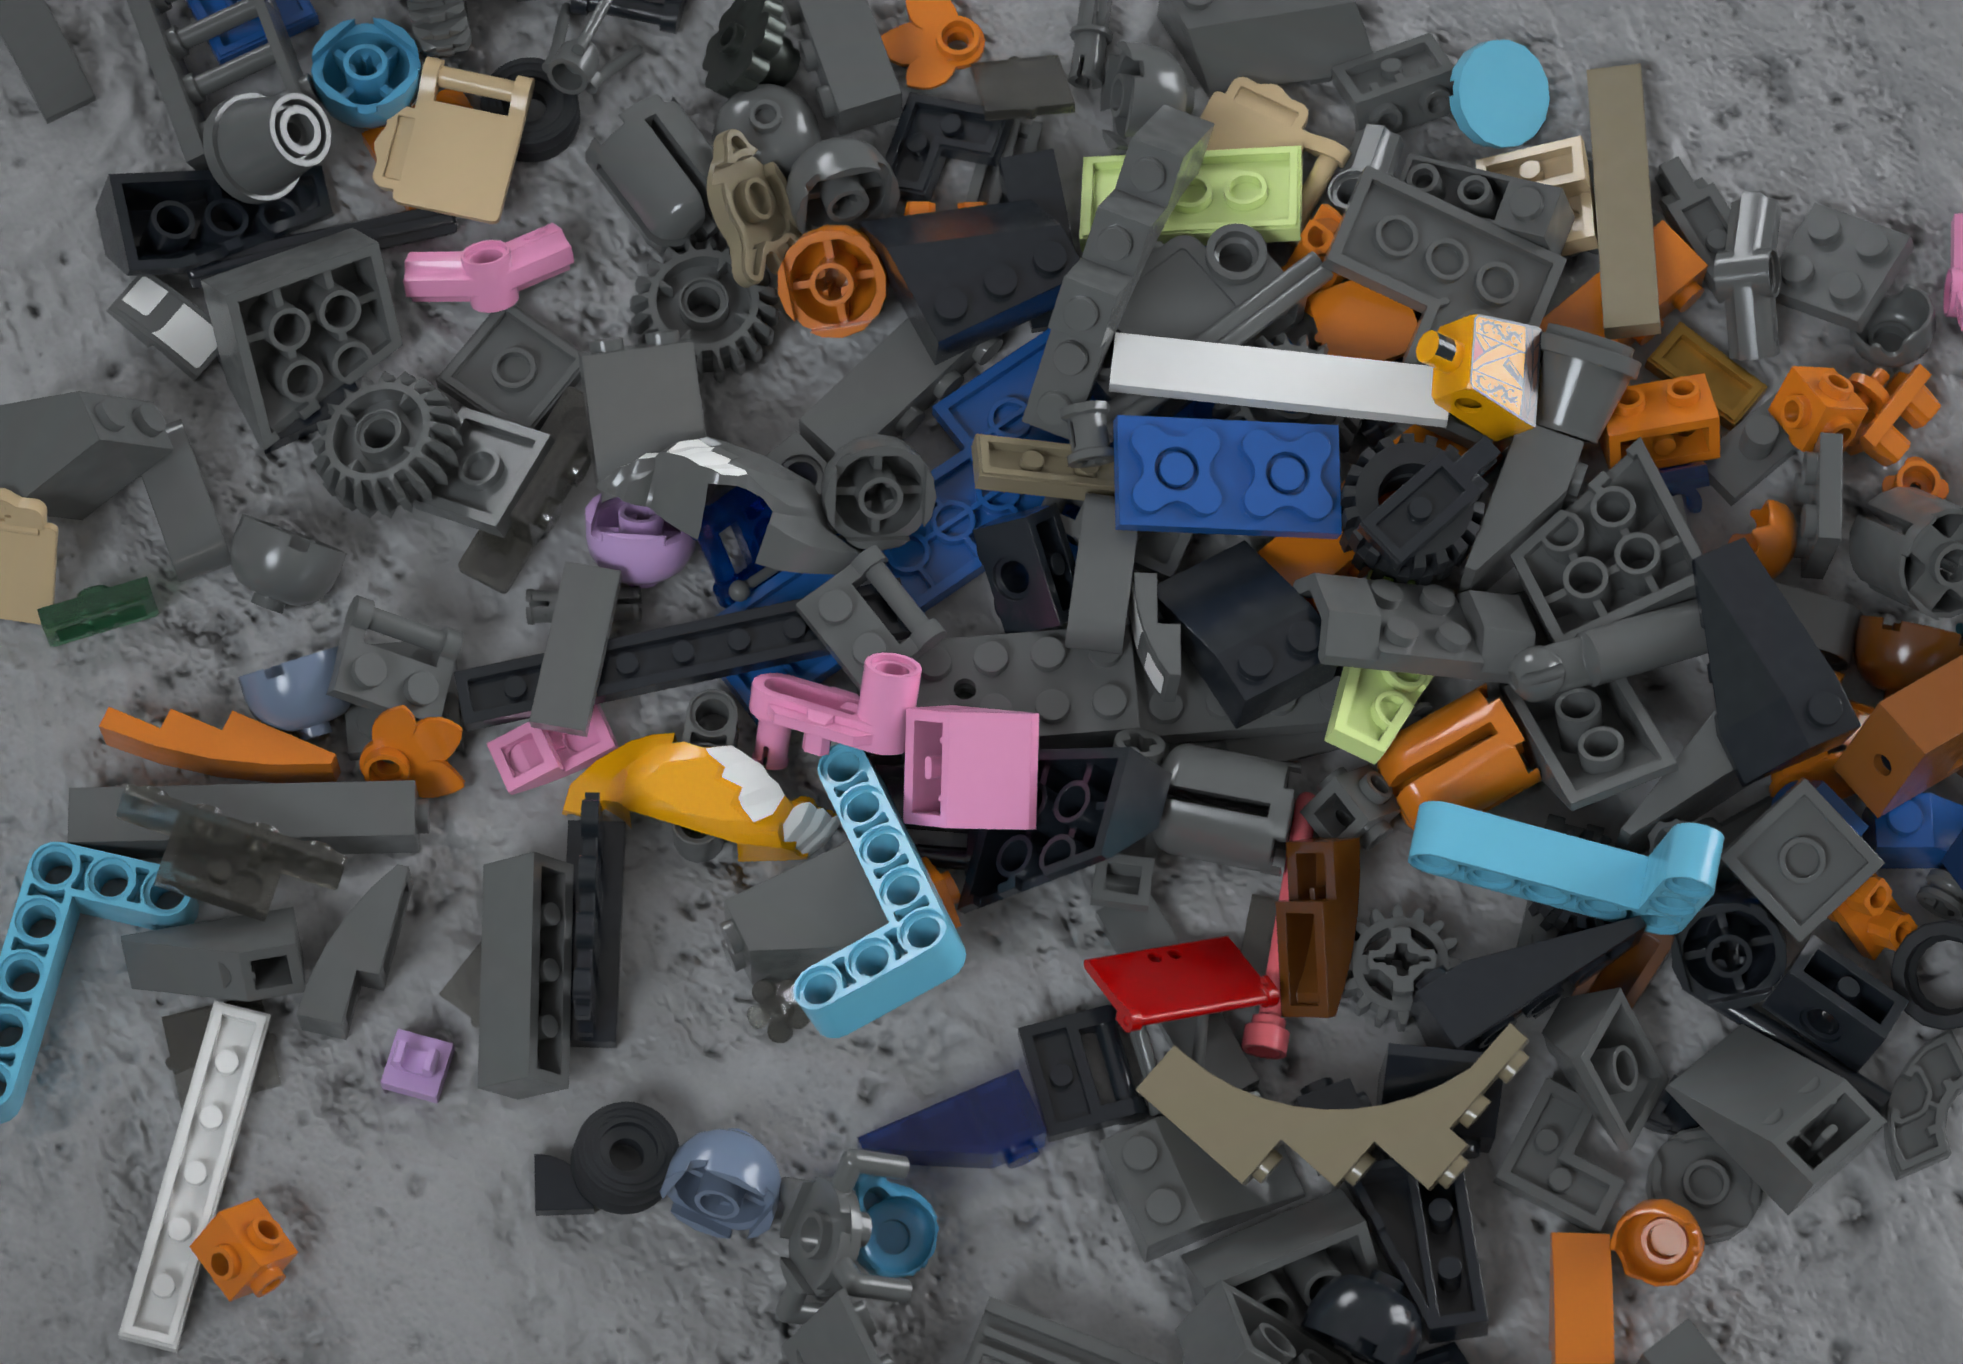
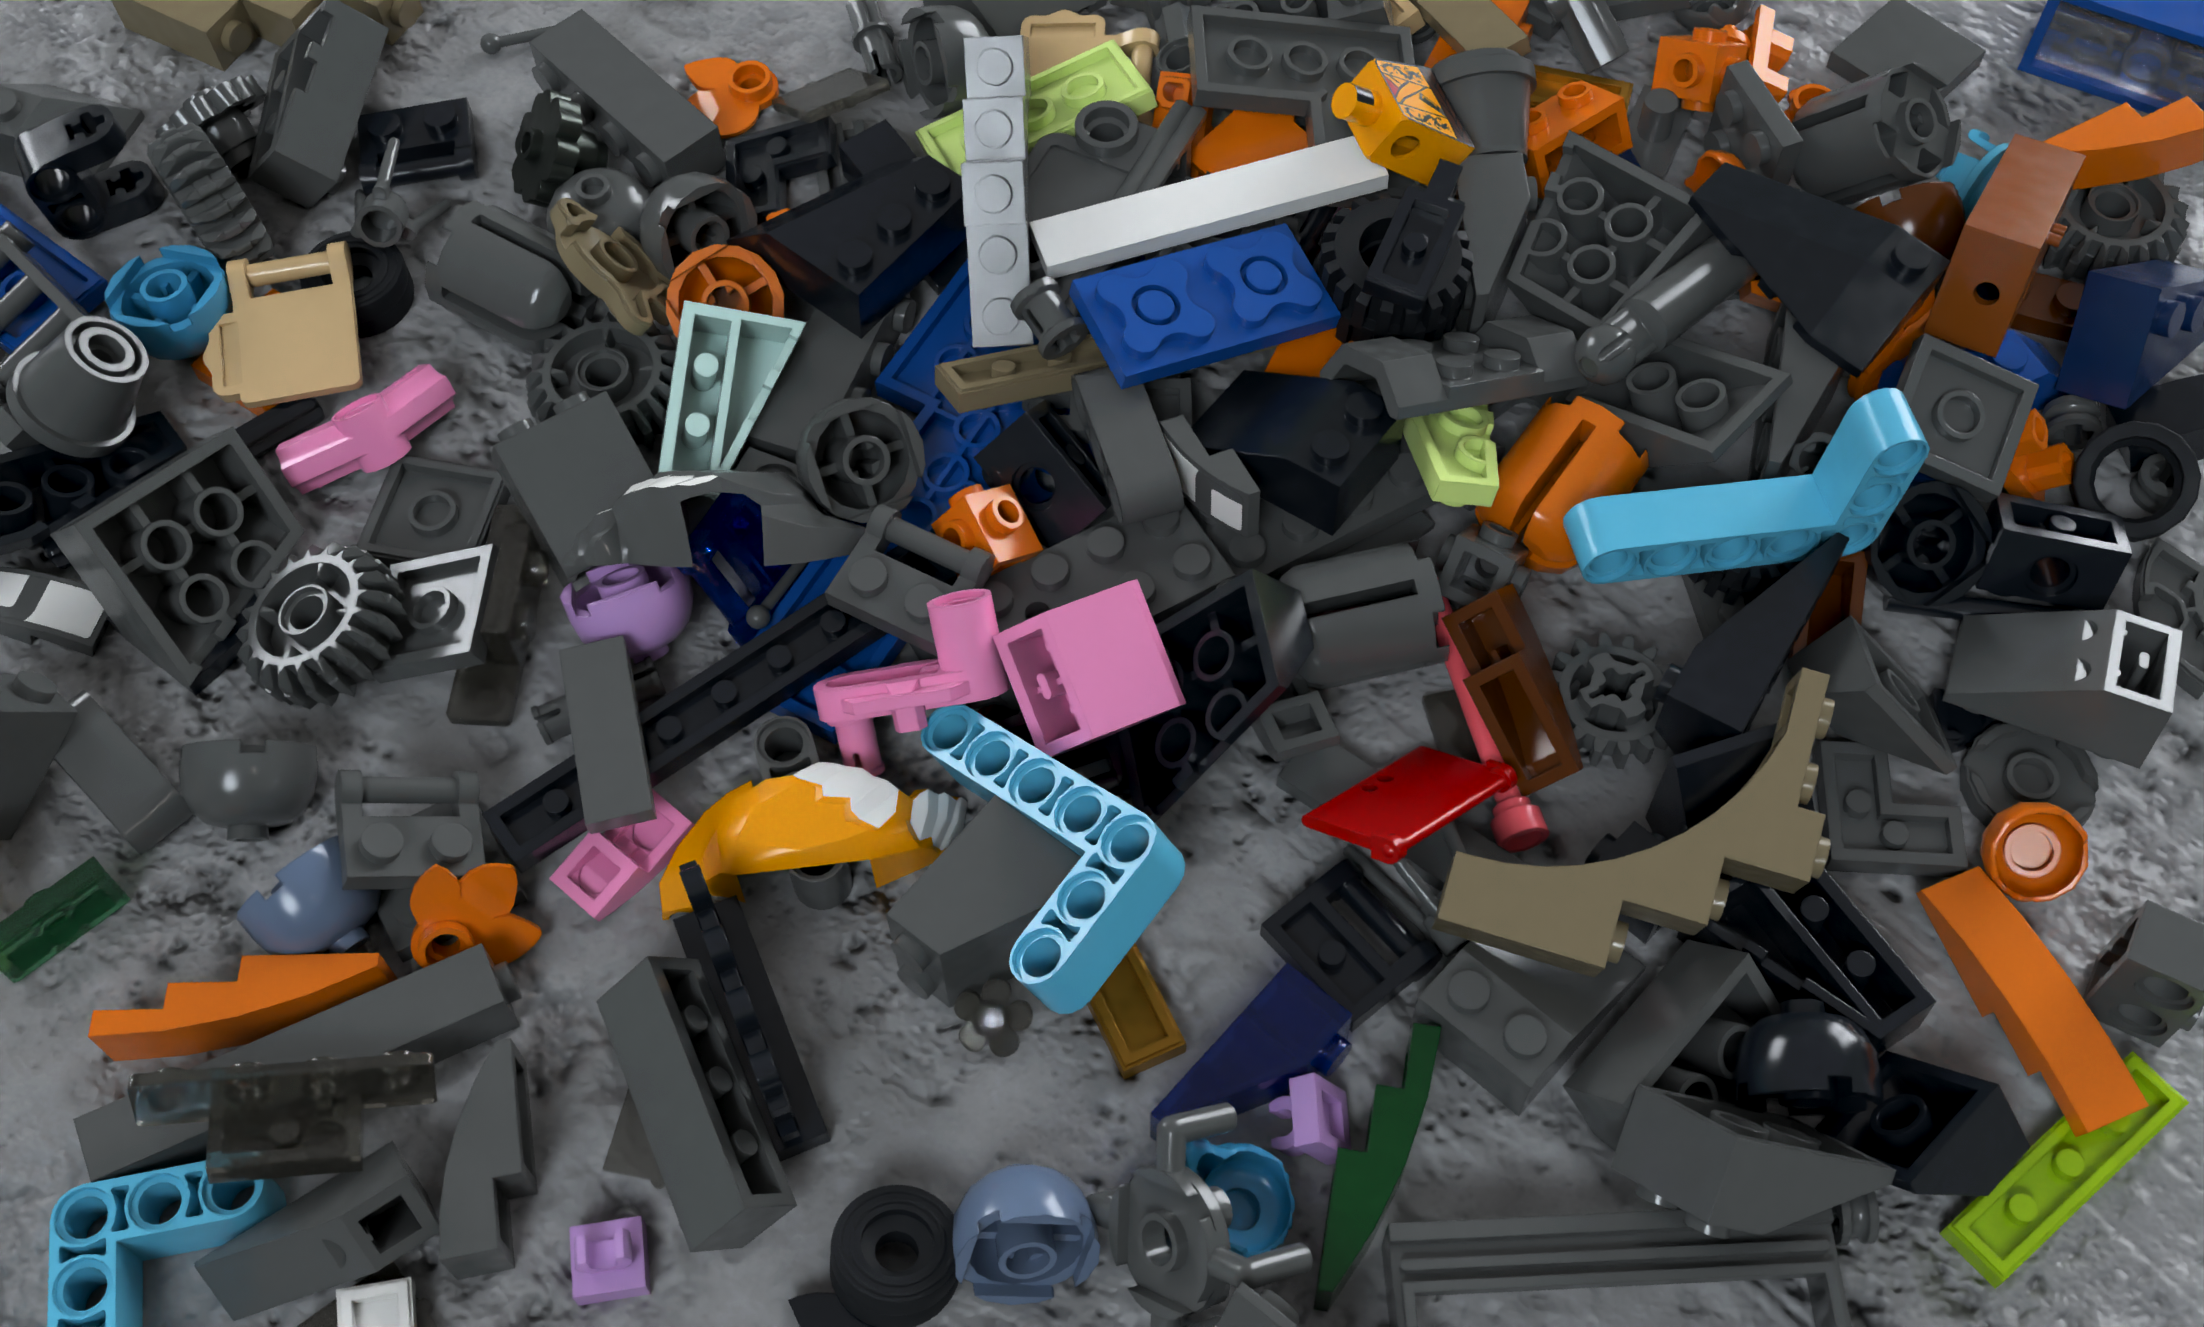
camera: 20 degrees left, 10 degrees down
(788, 371) = (721, 383): none -> light aqua wedge
(888, 1056) = (1135, 1018): none -> pearl gold tile
(957, 598) = (991, 522): none -> orange brick
(984, 1197) = (1317, 1117): none -> lavender tile
(997, 1262) = (1368, 1180): none -> dark green slope

